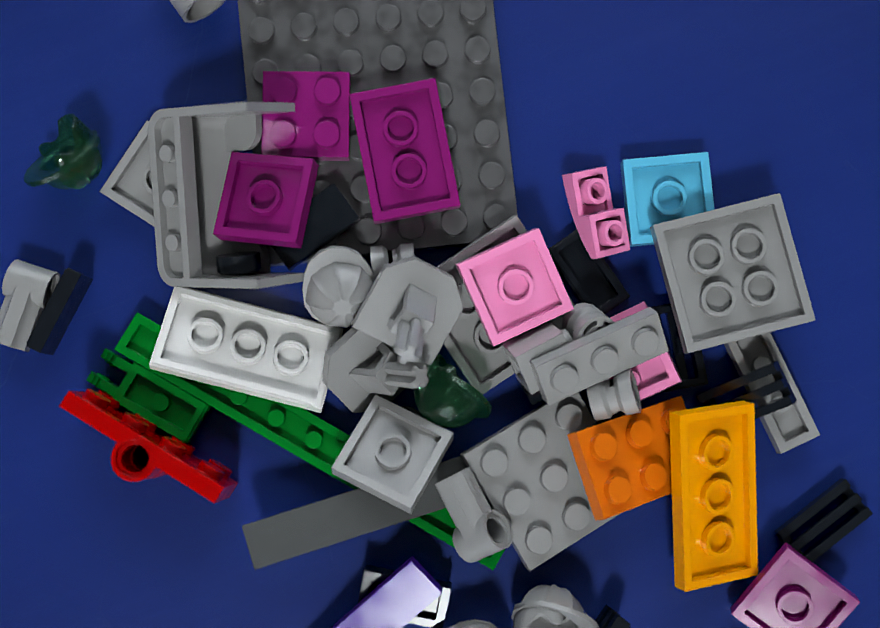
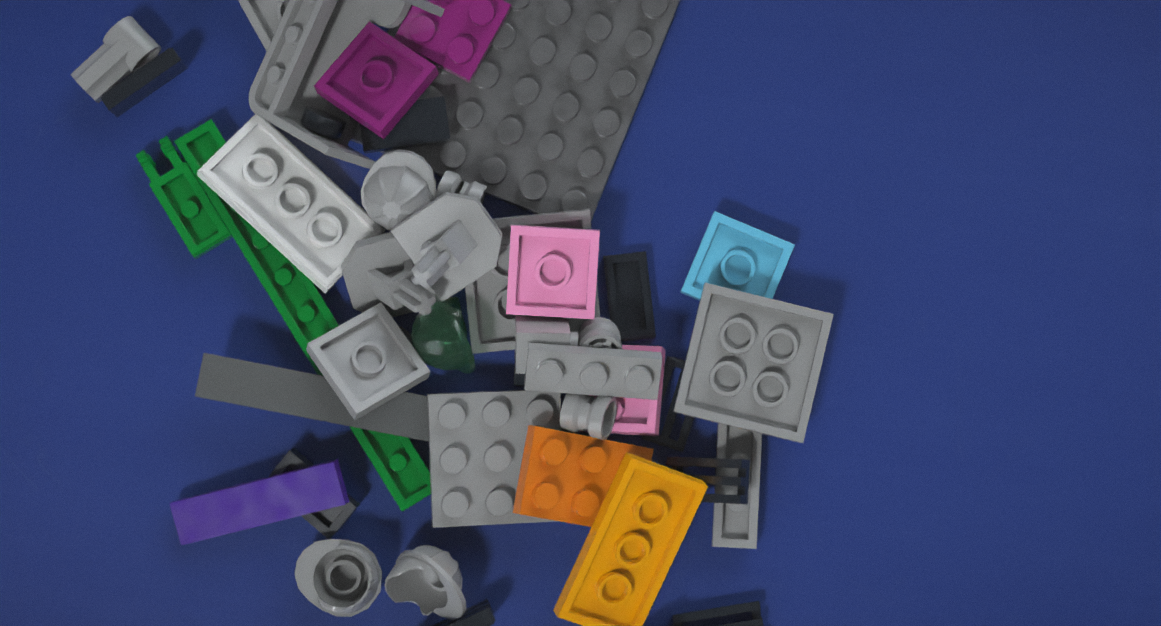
camera: 30 degrees right, 0 degrees up
(165, 454) = (171, 255): red plate -> none
(405, 151) = (521, 101): magenta plate -> none
(478, 527) = (408, 465): light grey piece -> none
(591, 206) = (663, 246): bright pink slope -> none

